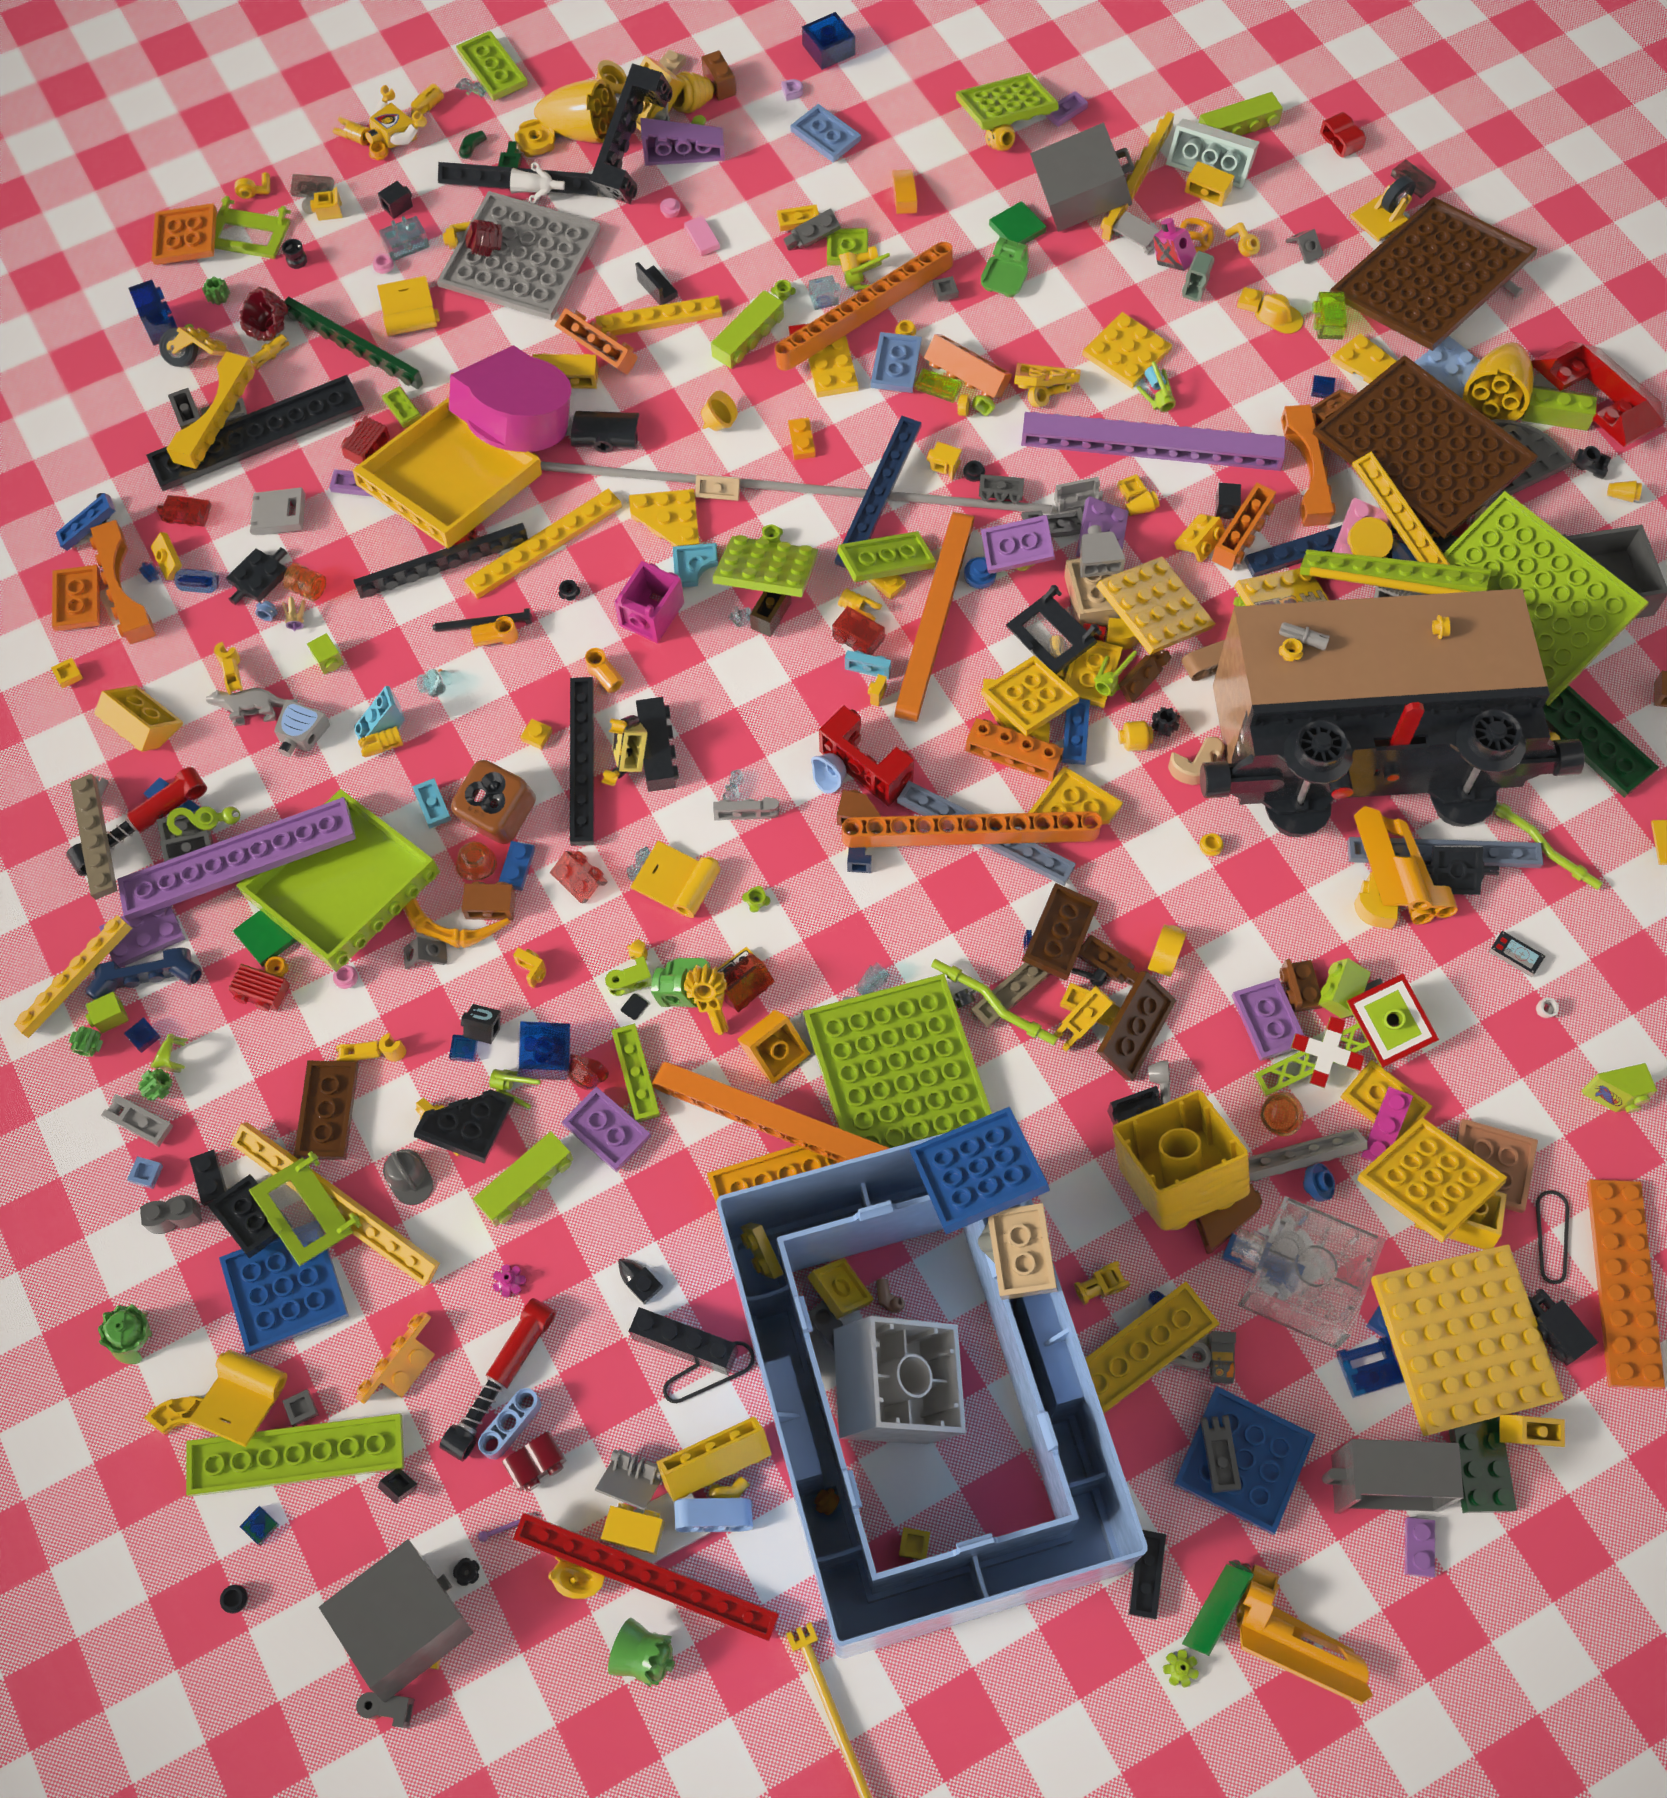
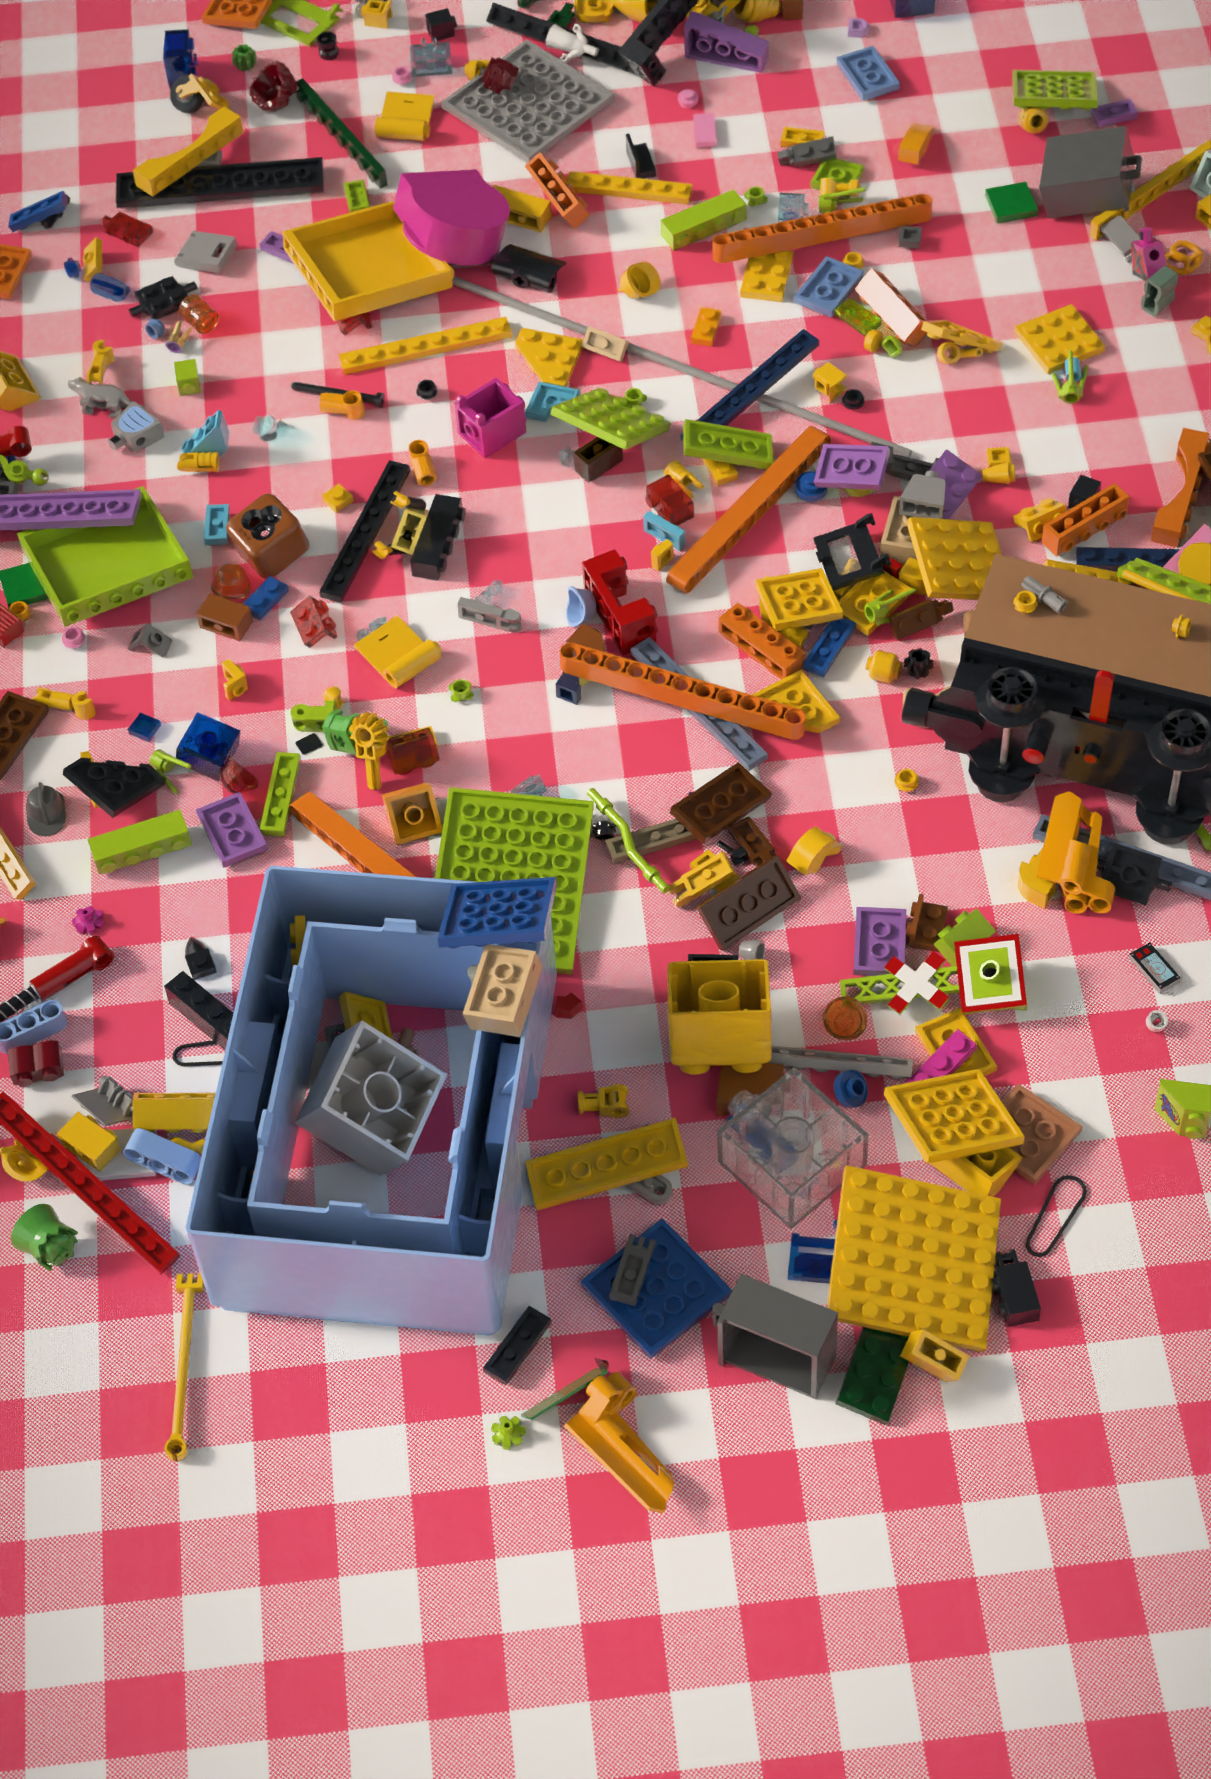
camera: 25 degrees right, 10 degrees down
(111, 549) = (49, 240): orange arch -> none
(184, 407) = (166, 141): flat silver brick -> none
(269, 351) = (264, 120): yellow pin -> none
(364, 440) = (310, 211): red brick -> none
(441, 560) = (326, 331): black plate -> none
(453, 937) = (179, 635): light orange animal -> none
(481, 1023) = (167, 710): black brick -> none
(1001, 488) = (870, 420): dark grey plate -> none
(1006, 269) = (977, 237): bright green piece -> none
(1072, 495) = (933, 444): light grey hinge -> none
(1153, 441) = (1040, 423): medium lavender brick -> none
(1222, 1356) = (681, 1197): dark grey leg -> none
(1419, 1547) = (781, 1419): medium lavender plate -> none
(1625, 1285) = (1102, 1278): orange plate -> none

